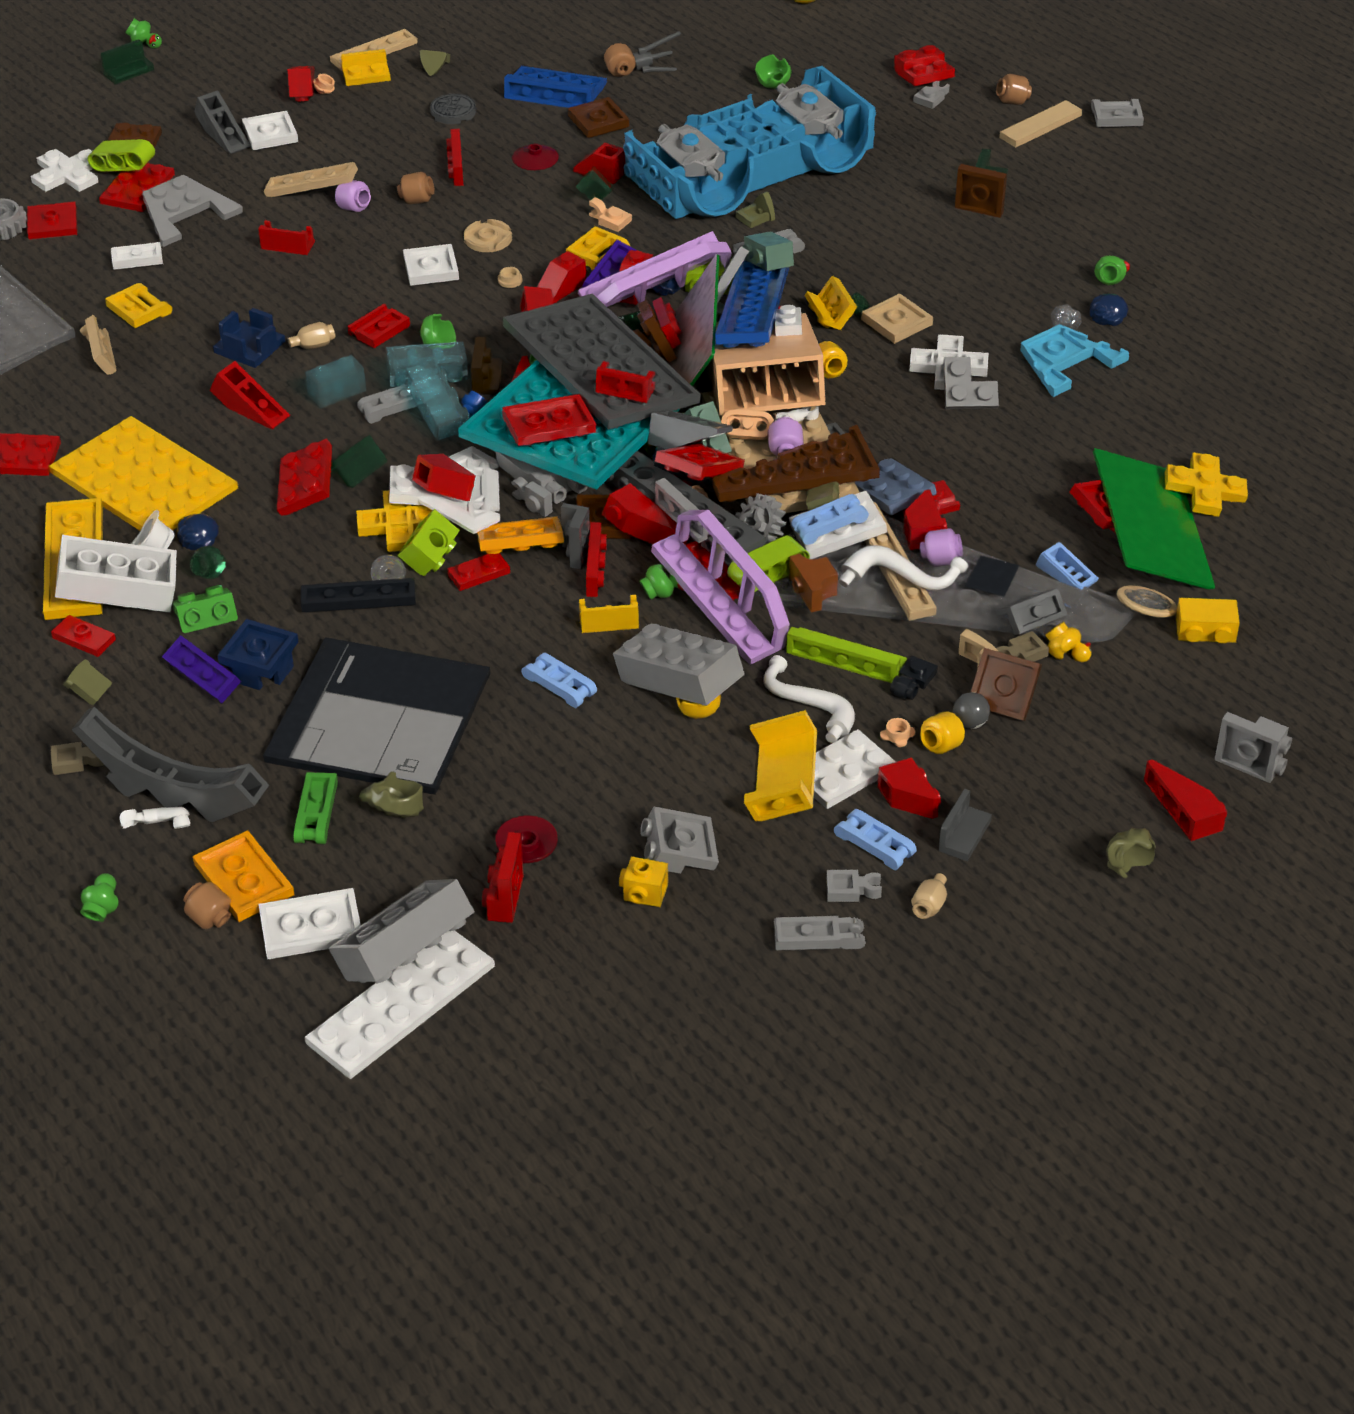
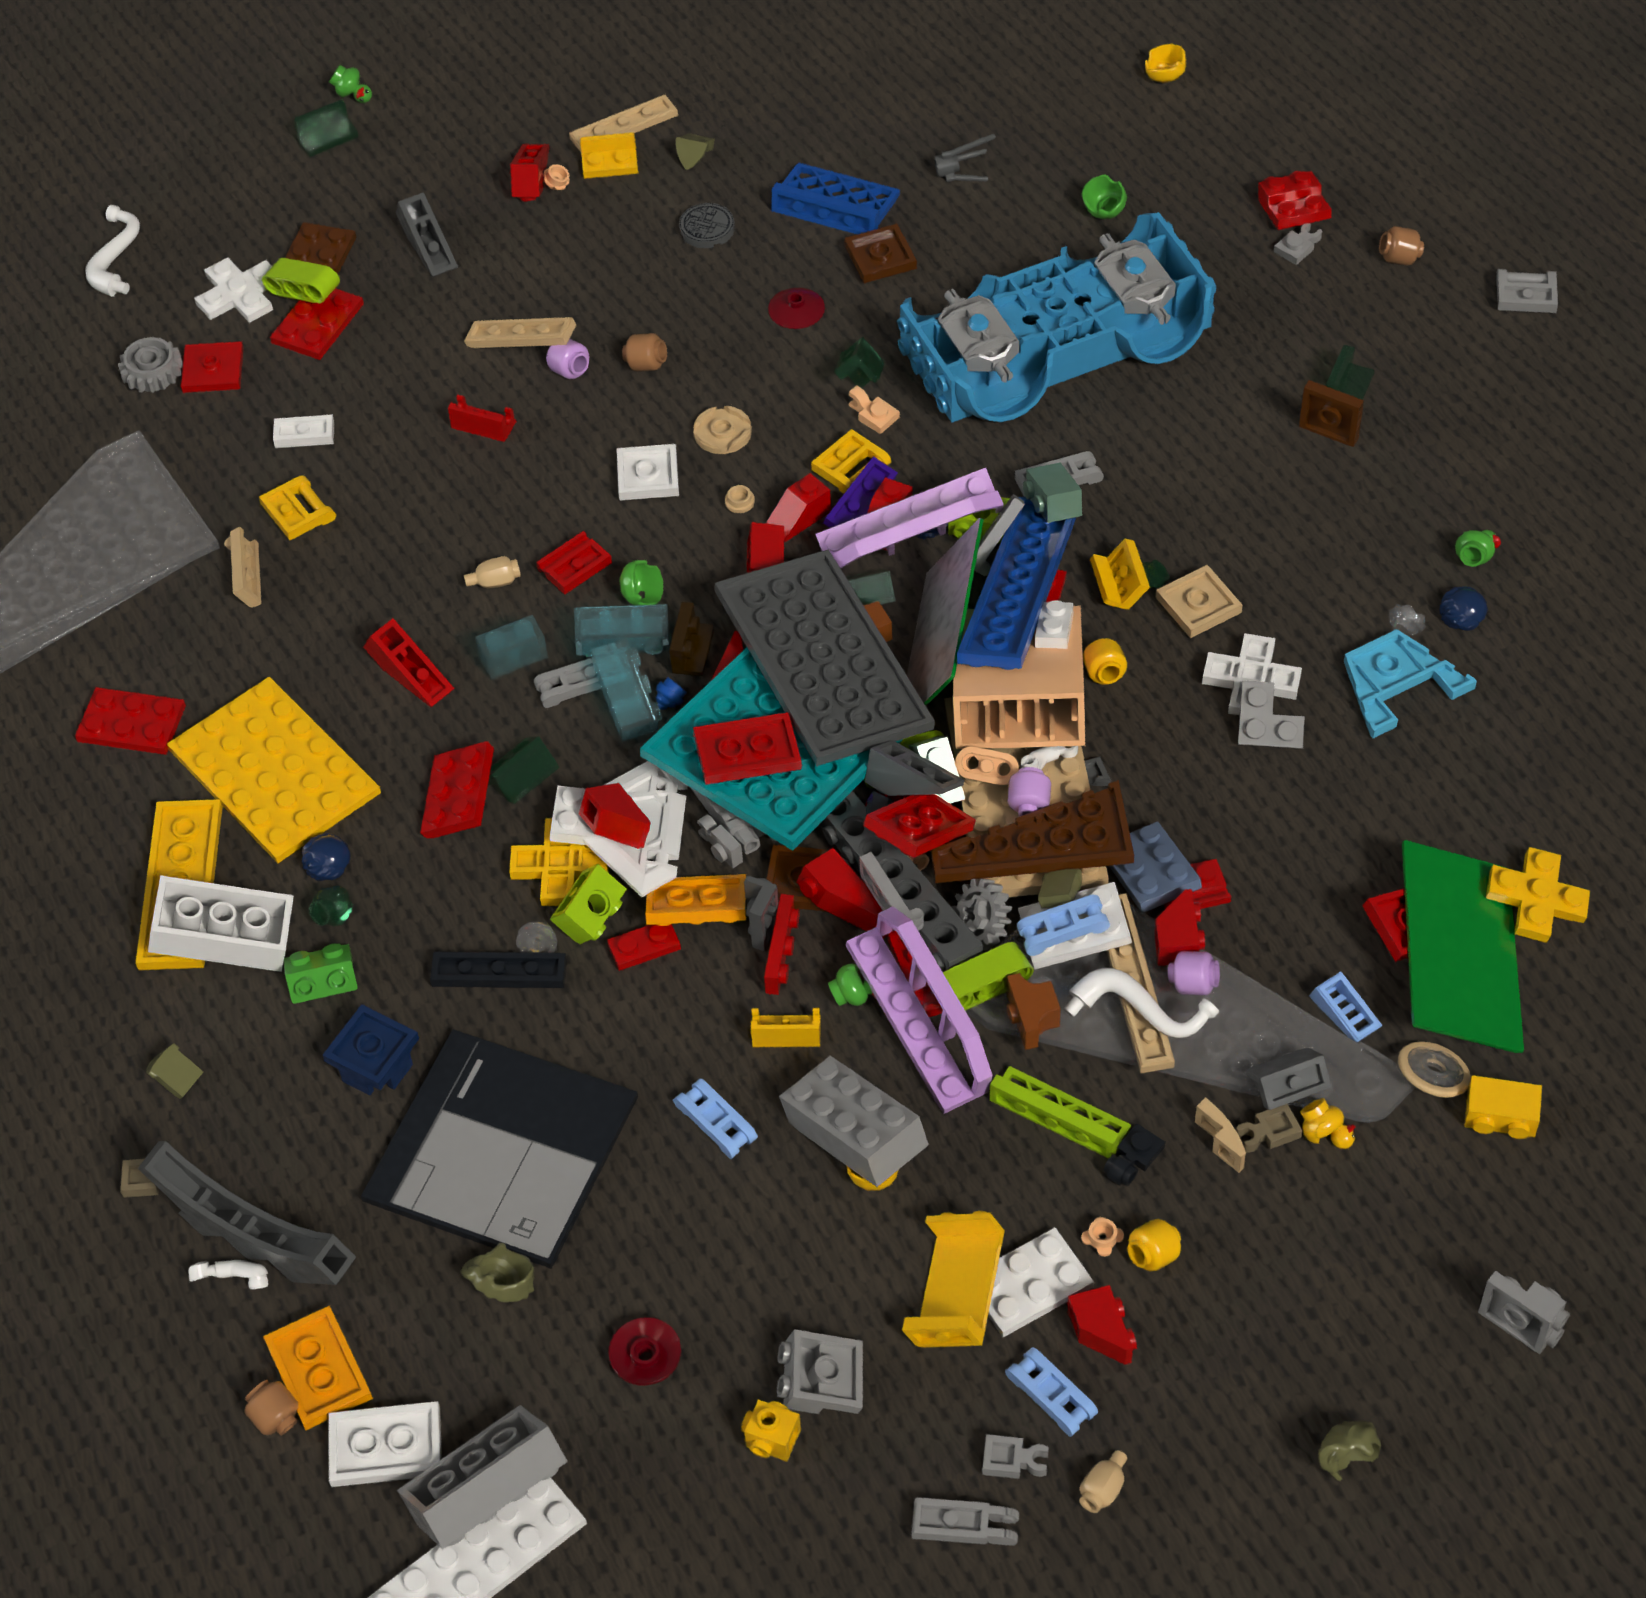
camera: 10 degrees right, 10 degrees up
(83, 635) = (178, 998): red plate -> none
(99, 898) = (153, 1387): bright green animal -> none
(154, 533) = (269, 868): white piece -> none
(181, 199) = (361, 350): light grey wing -> none
(201, 669) = (305, 1064): dark purple plate -> none
(248, 341) = (418, 571): dark blue panel -> none
(270, 130) = (483, 246): white plate -> none
(315, 807) = (411, 1277): bright green plate -> none
(454, 157) = (698, 307): red plate -> none
(505, 881) = (611, 1417): red plate -> none
(607, 159) = (878, 329): red slope -> none
(619, 60) = (918, 165): medium nougat head -> none
(624, 384) = (842, 705): red hinge -> none
(652, 329) = (899, 608): reddish brown plate -> none
(668, 321) = (916, 591): red plate -> none
(758, 212) = (1052, 418): olive tile -> none
(840, 708) = (1041, 1198): white animal -> none
(963, 828) = (1158, 1388): dark grey panel -> none
(972, 710) = (1193, 1217): dark grey piece -> none
(992, 576) = (1251, 1015): black sticker -> none
(1006, 683) = (1238, 1184): reddish brown plate -> none
(1040, 123) = (1427, 300): tan tile -> none
(1187, 802) = (1432, 1379): red slope -> none

